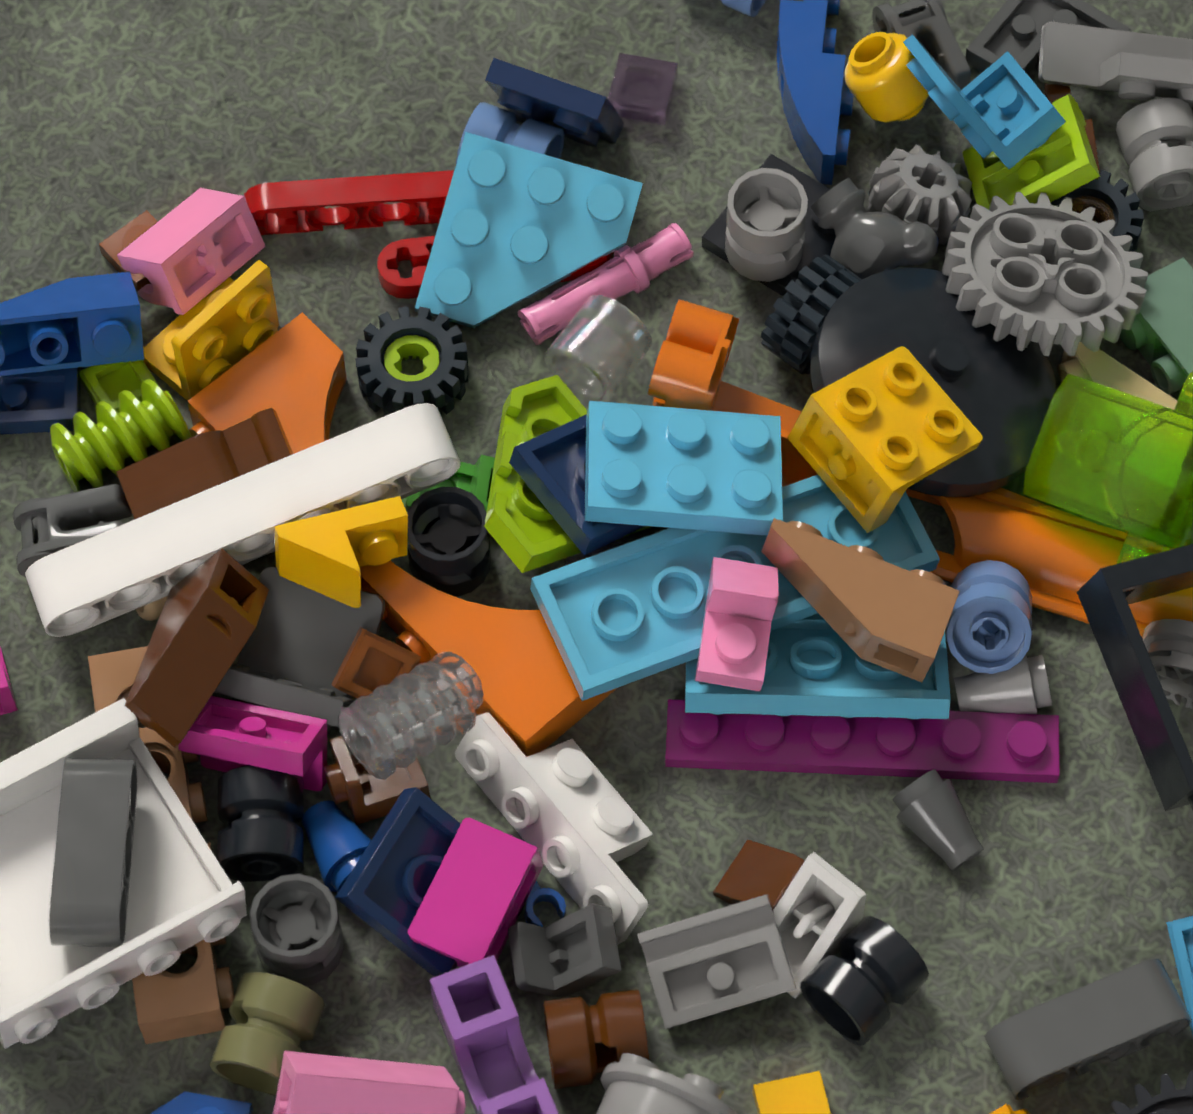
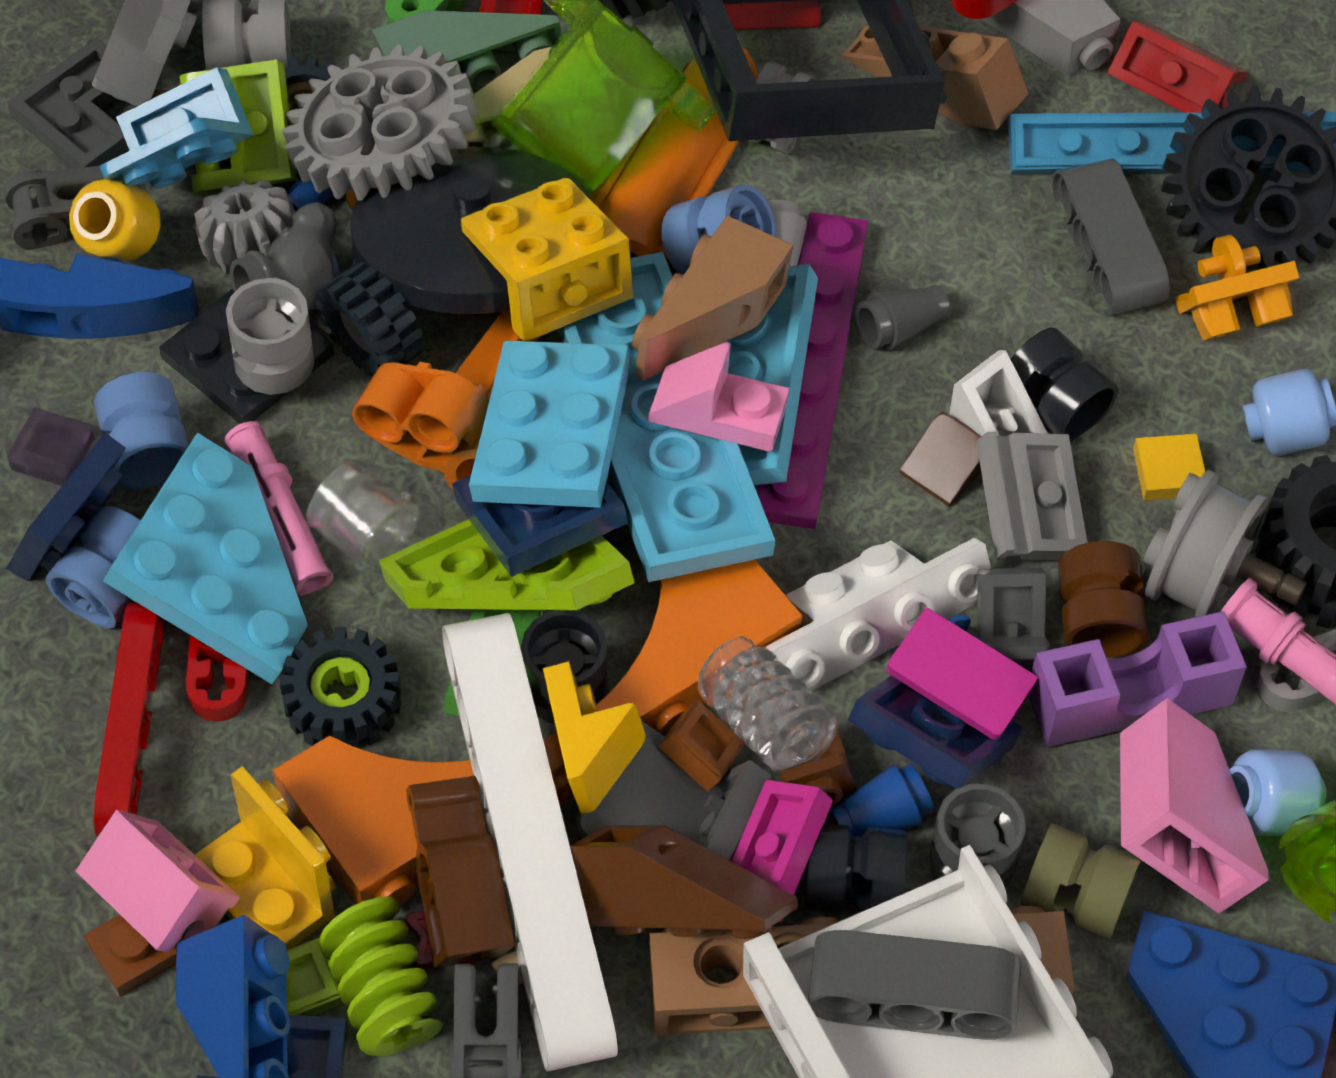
camera: 85 degrees left, 5 degrees down
(667, 152) = (145, 419): none -> medium blue wheel

